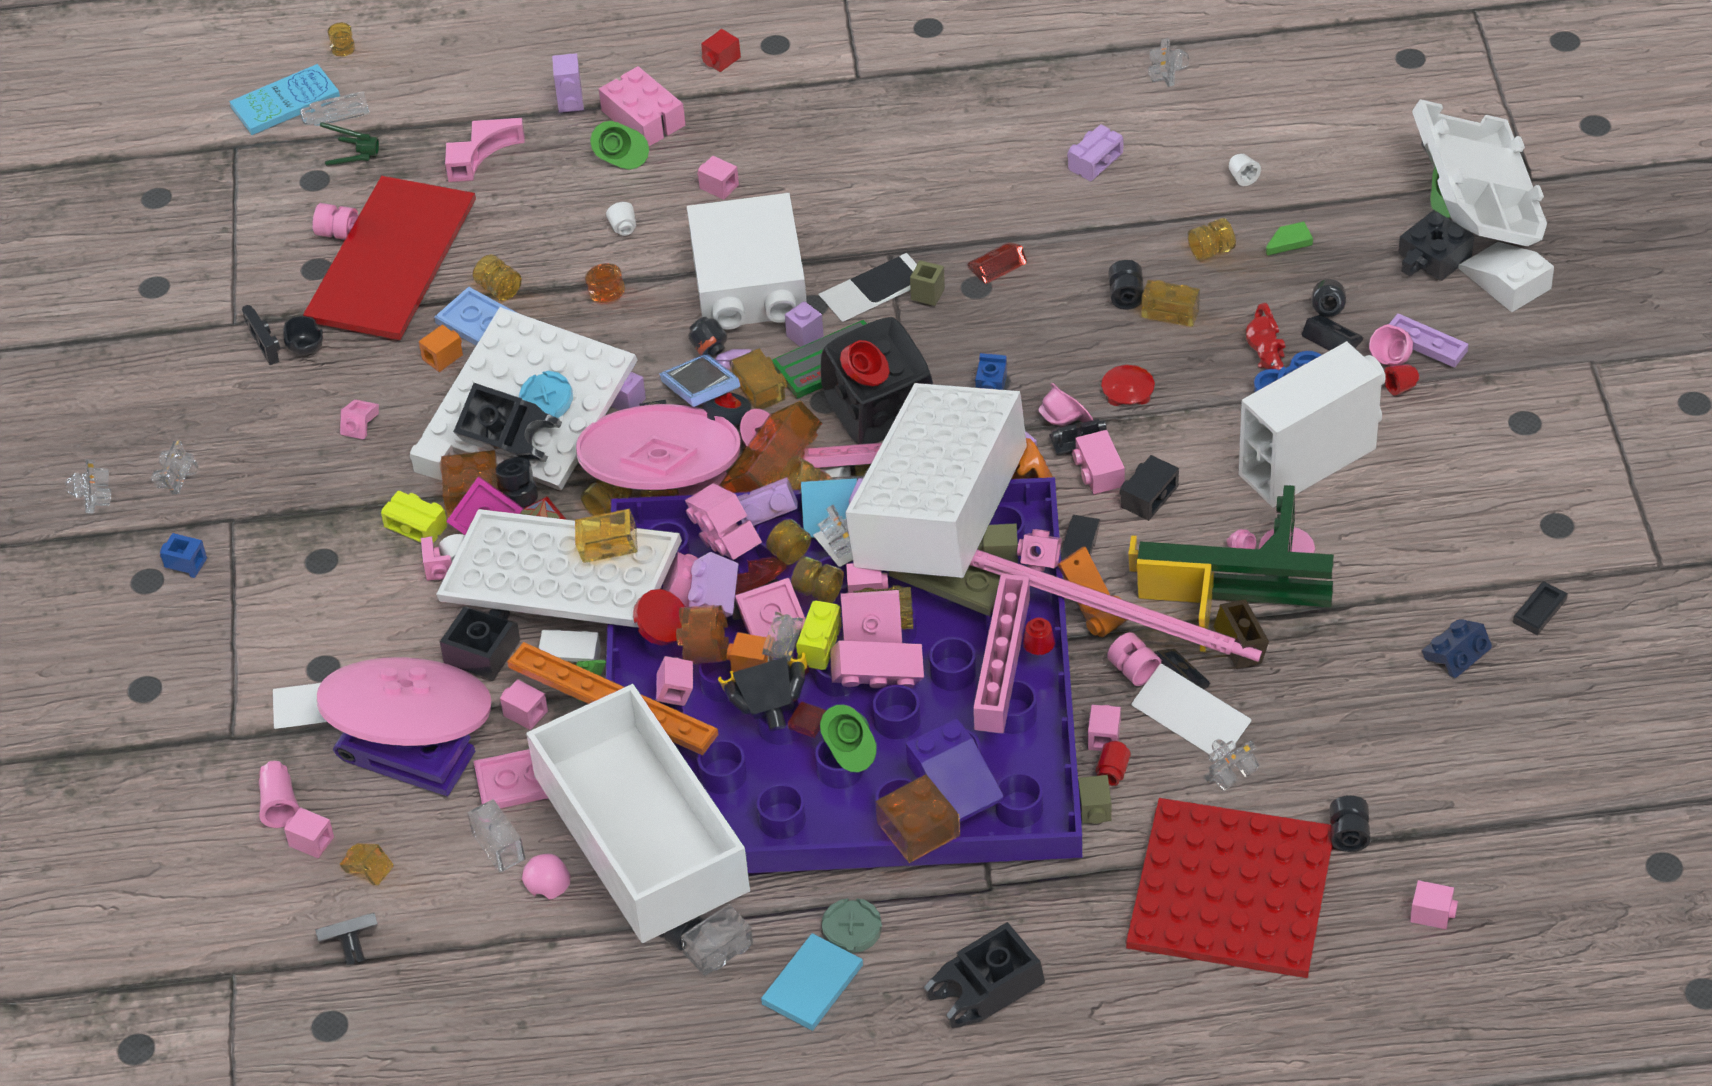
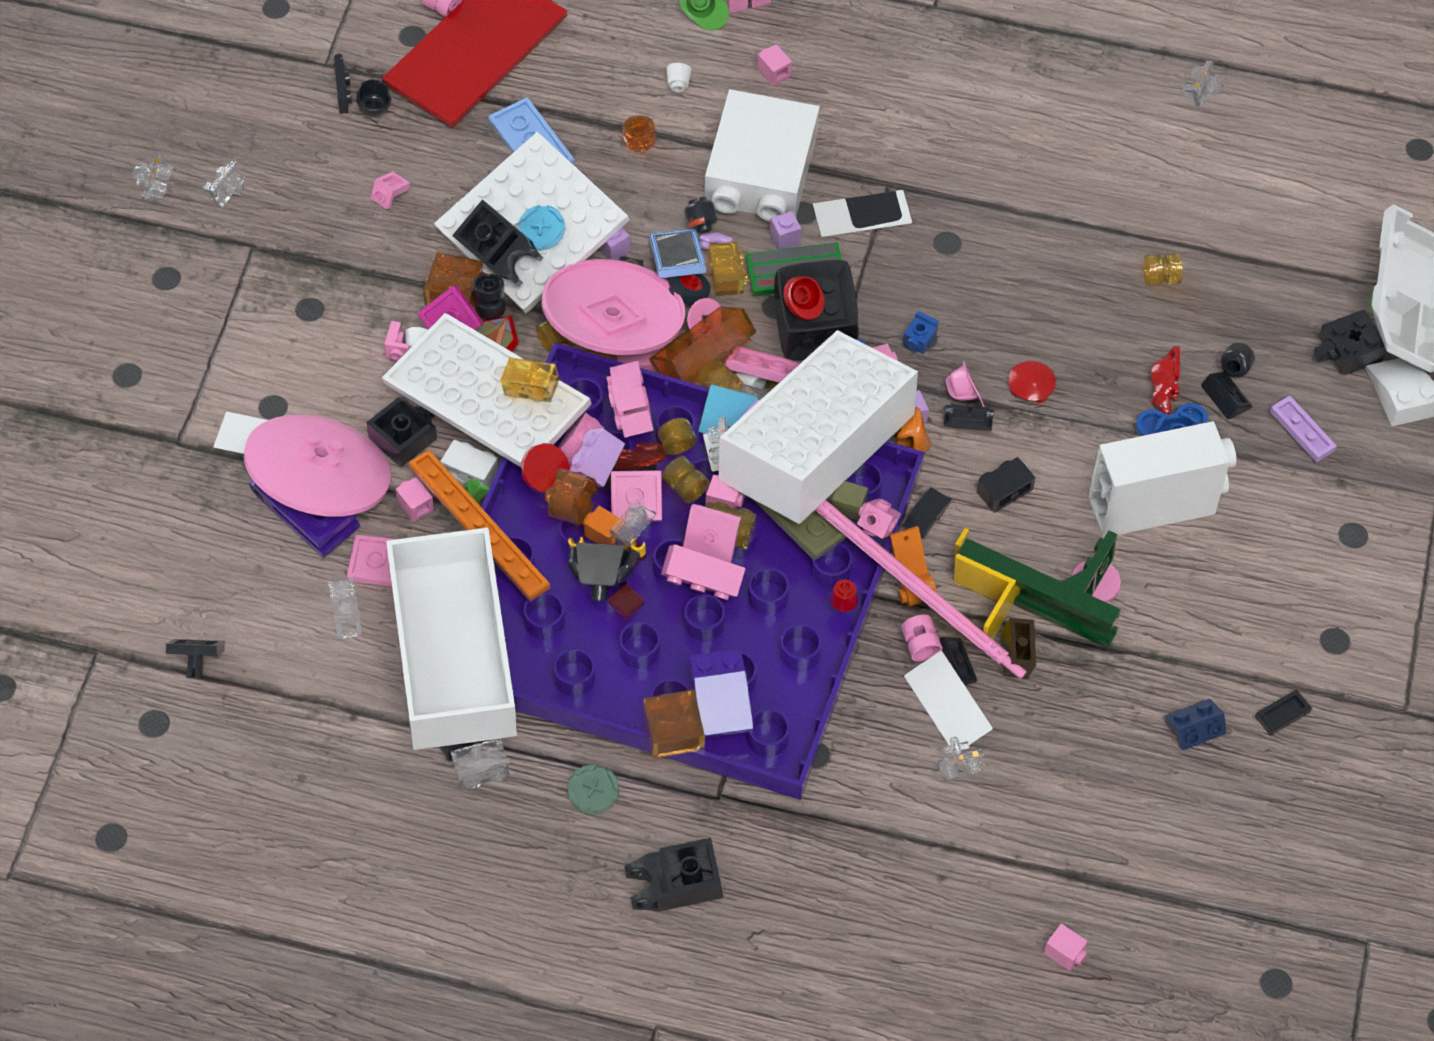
camera: 15 degrees right, 10 degrees up
(183, 554) = (201, 266): blue brick -> none
(276, 795) = (189, 510): bright pink plant -> none
(308, 832) = (201, 551): bright pink brick -> none
(367, 860) = (237, 593): clear yellow bracket -> none
(414, 517) = (396, 297): neon yellow brick -> none
(427, 456) = (430, 243): white brick -> none
(441, 348) = (481, 147): orange brick -> none
(497, 277) = (552, 97): clear yellow wheel -> none
(546, 876) = (371, 657): bright pink hair -> none
(674, 681) = (532, 529): bright pink brick -> none
(768, 502) = (675, 392): lavender brick -> none
(812, 981) = (541, 827): medium azure tile -> none
(819, 633) = (665, 529): neon yellow brick -> none
(848, 737) = (649, 631): bright green piece -> none
(927, 283) = (904, 227): olive brick -> none
(998, 262) = (975, 226): clear red slope -> none
(1001, 653) = (805, 601): bright pink brick -> none
(1095, 152) = (1102, 150): lavender brick -> none
(1095, 799) = (833, 752): olive brick -> none
(1099, 462) = (974, 446): bright pink brick -> none
(1103, 726) = (870, 690): bright pink brick -> none
(1113, 761) = (863, 724): red brick -> none
(1126, 284) = (1071, 287): black wheel -> none
(1170, 302) = (1100, 317): clear yellow brick -> none
(1231, 887) = (912, 869): red plate -> none
(1242, 539) = (1060, 563): bright pink plate -> none
(1244, 169) = (1222, 210): white hat -> none
(1290, 238) = (1232, 290): bright green tile -> none
(1349, 823) = (1031, 851): black wheel -> none
(1391, 345) = (1269, 424): bright pink hair -> none
(1400, 378) = (1264, 457): red hat -> none

